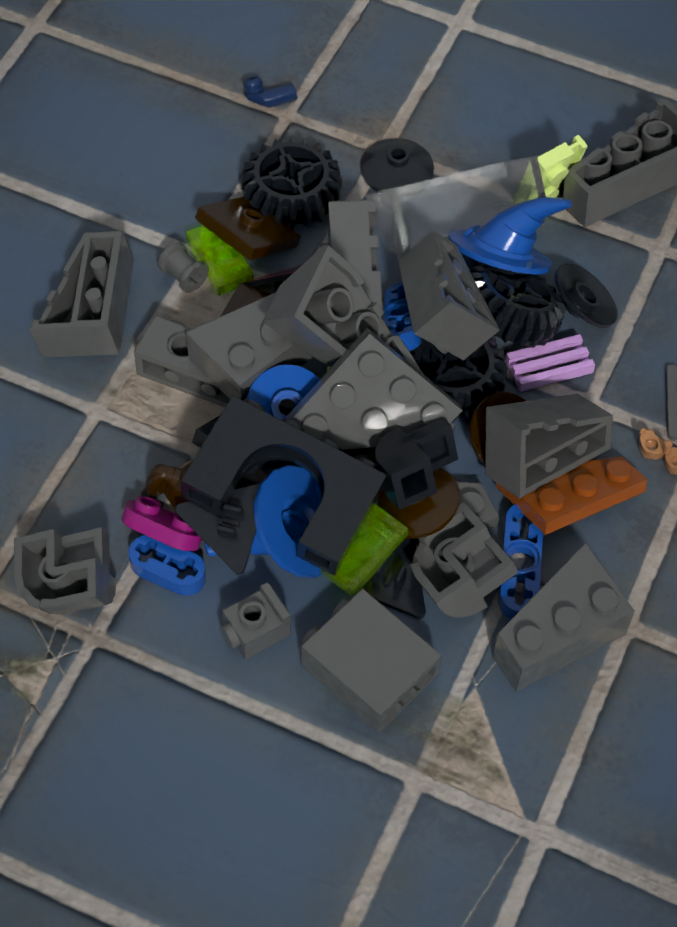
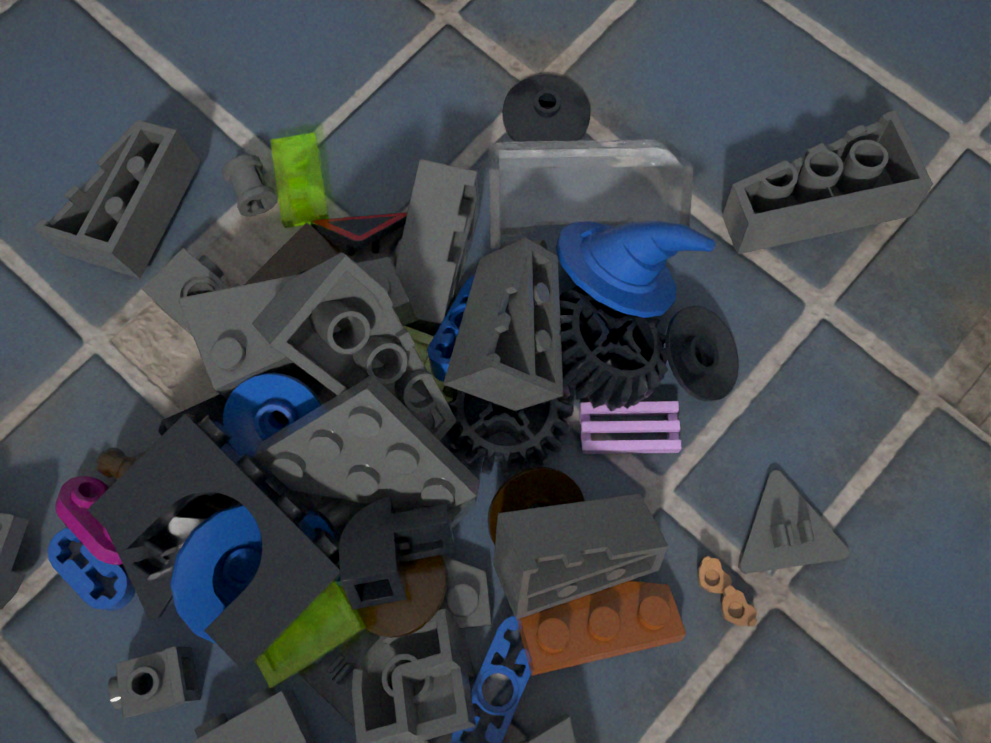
camera: 20 degrees right, 15 degrees up
(247, 228) = (336, 155): dark brown plate -> none
(291, 182) = (438, 111): black gear -> none
(556, 164) = (720, 174): yellowish green plate -> none

